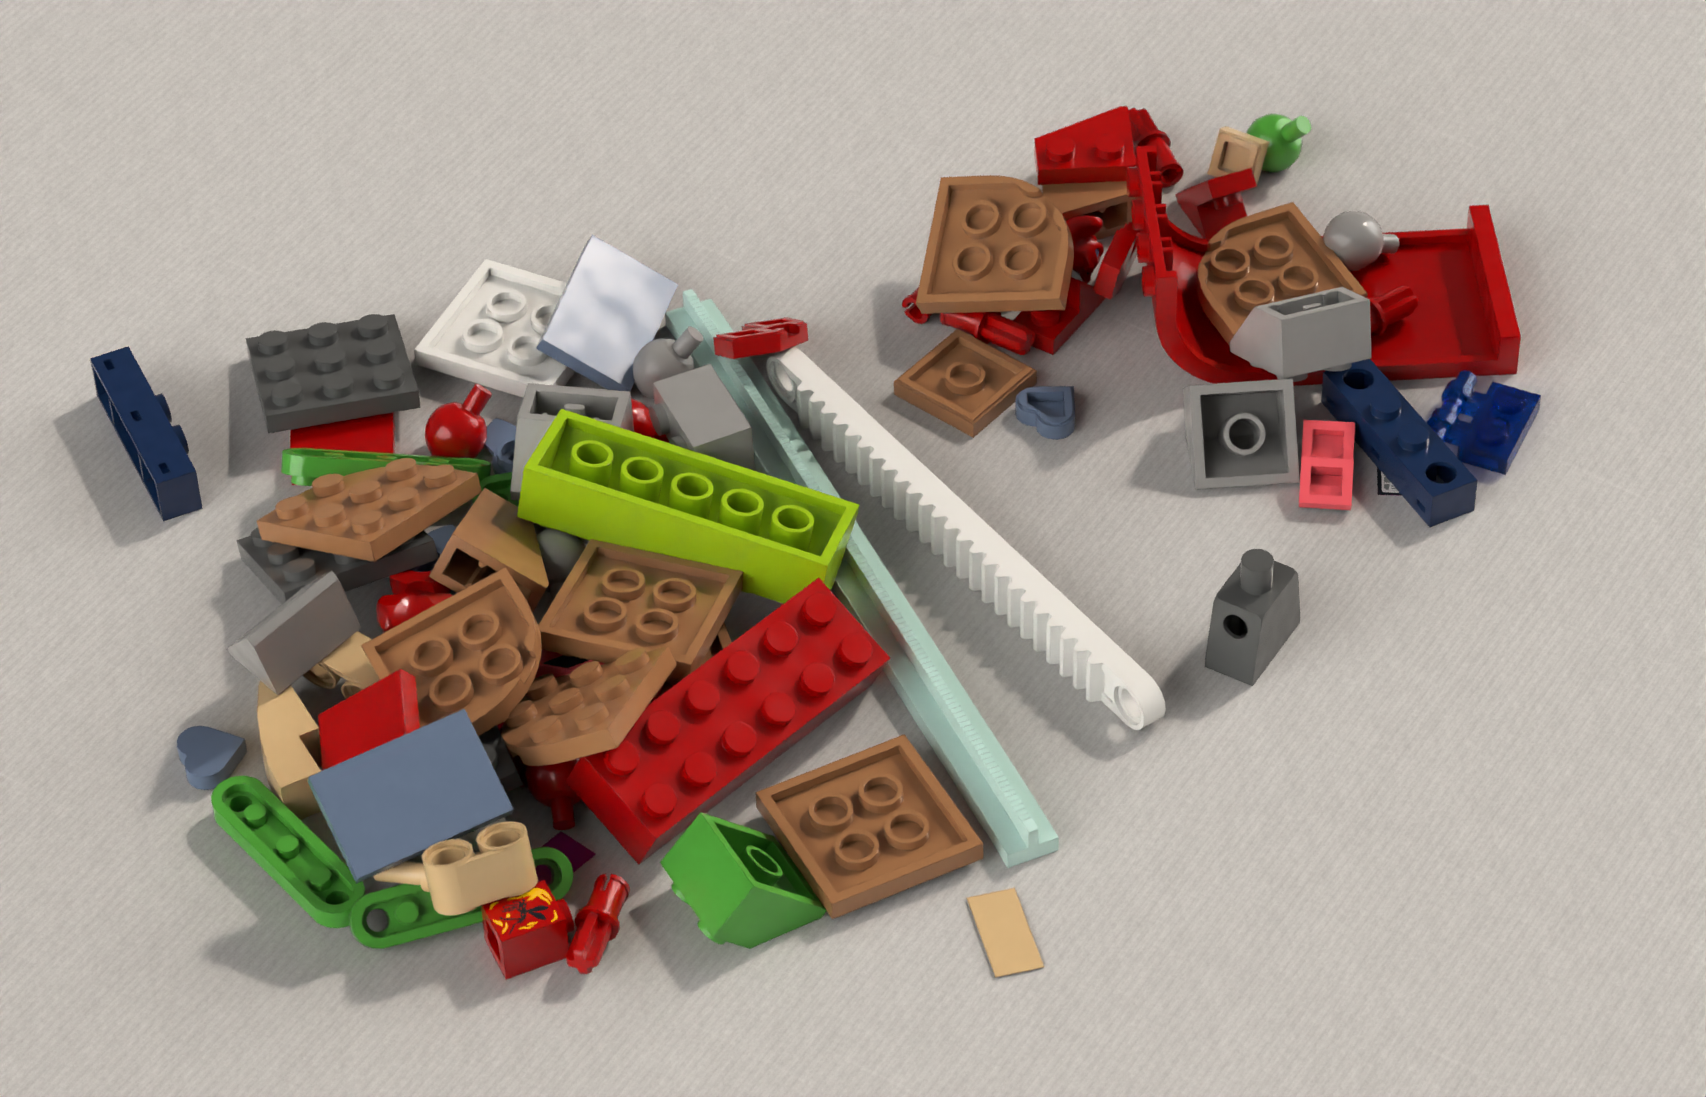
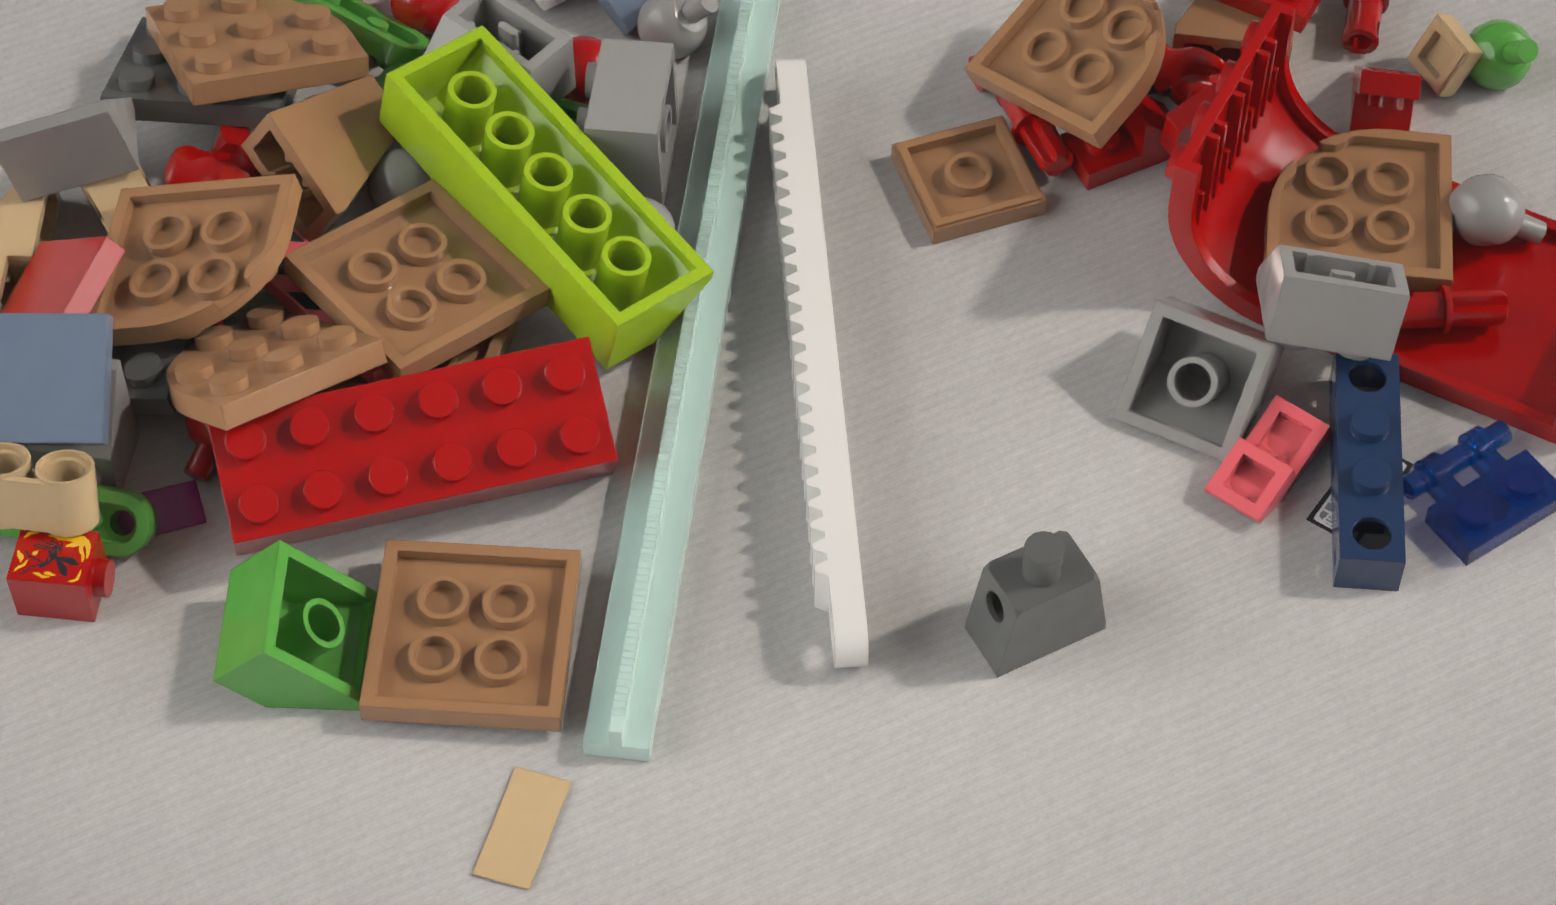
camera: 30 degrees right, 10 degrees up
(597, 923) = (133, 602): red axle -> none
(761, 338) = (797, 39): red tile -> none
(1048, 409) = (1028, 251): sand blue tile -> none

